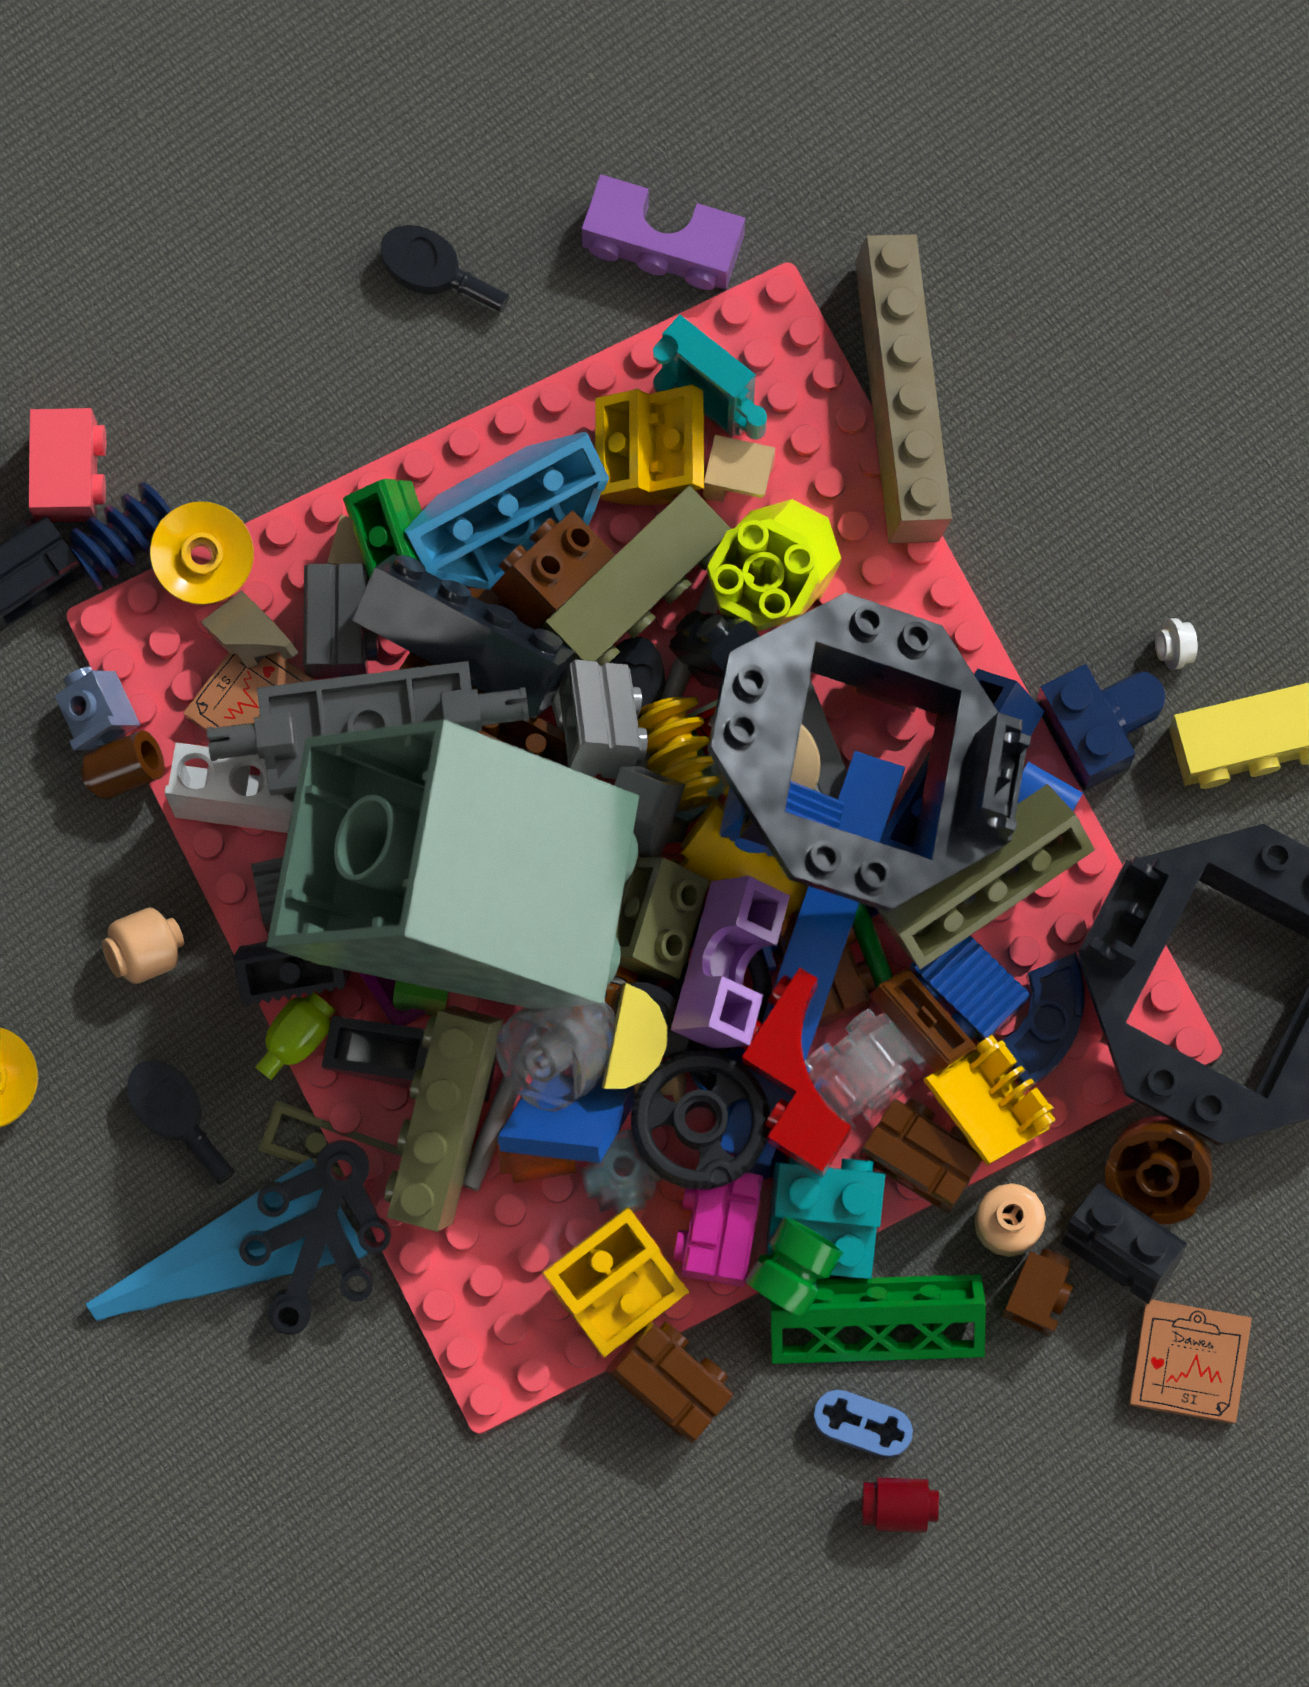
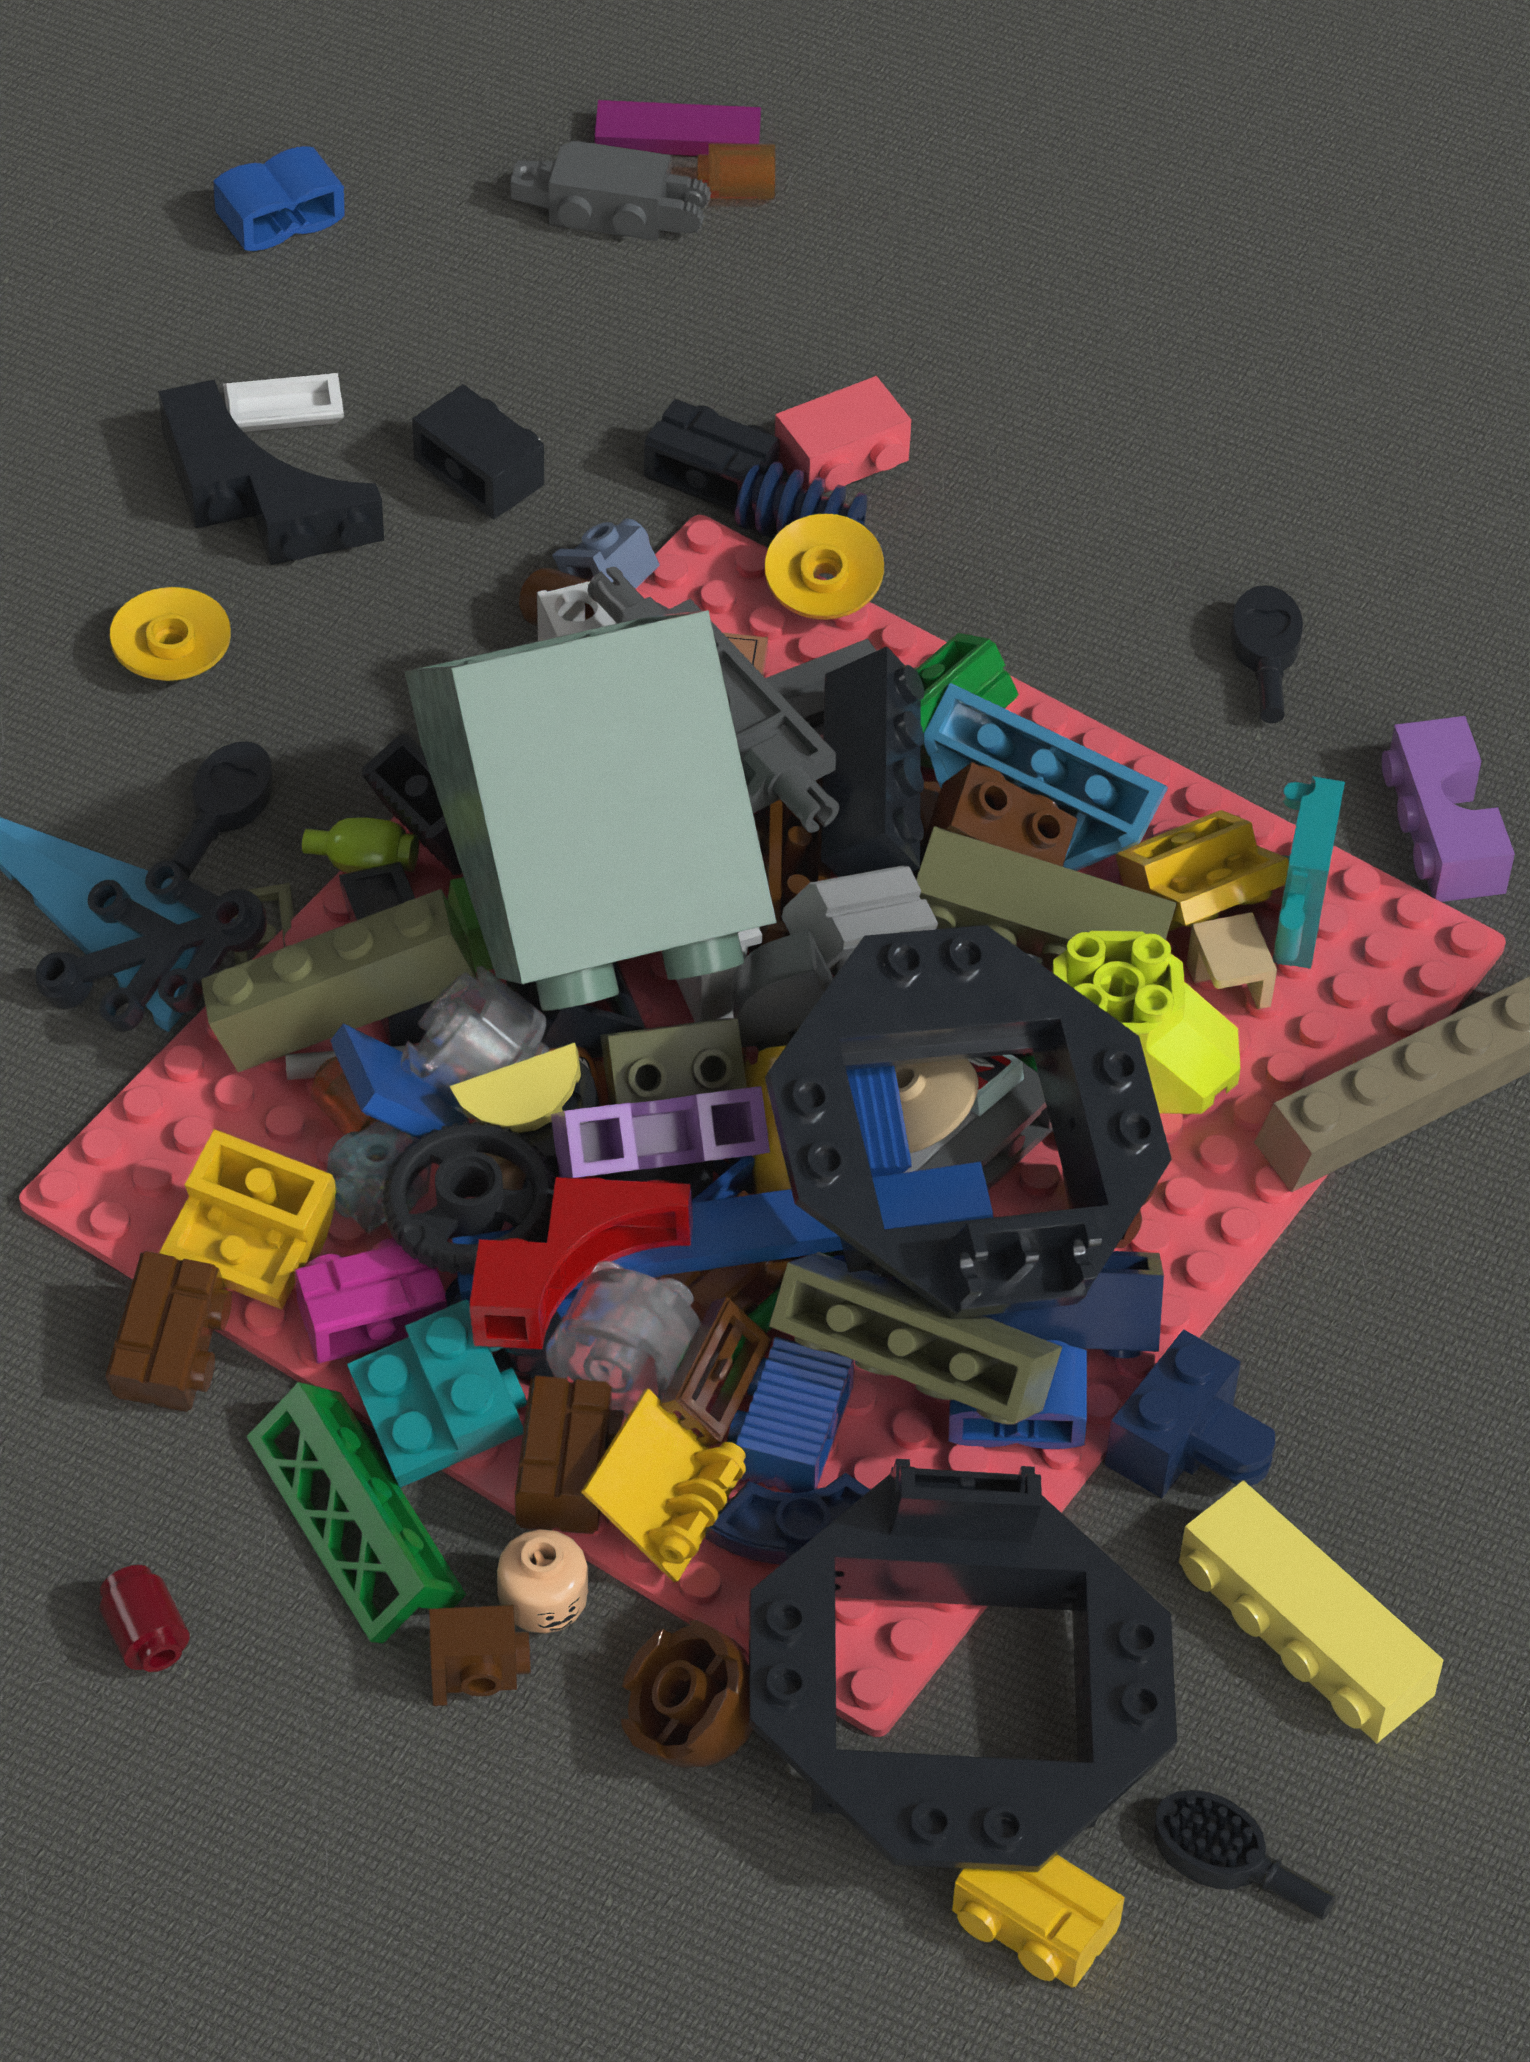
camera: 60 degrees right, 25 degrees down
(142, 945) = (378, 698): light nougat head -> none
(247, 631) = (766, 633): dark tan slope -> none
(794, 1266) = (346, 1360): green wheel -> none
(867, 1411) = (210, 1553): medium blue beam -> none
(1123, 1243) = (580, 1704): black brick -> none
(1176, 643) = (1335, 1466): white plate -> none
(1190, 1361) = (483, 1857): nougat tile -> none

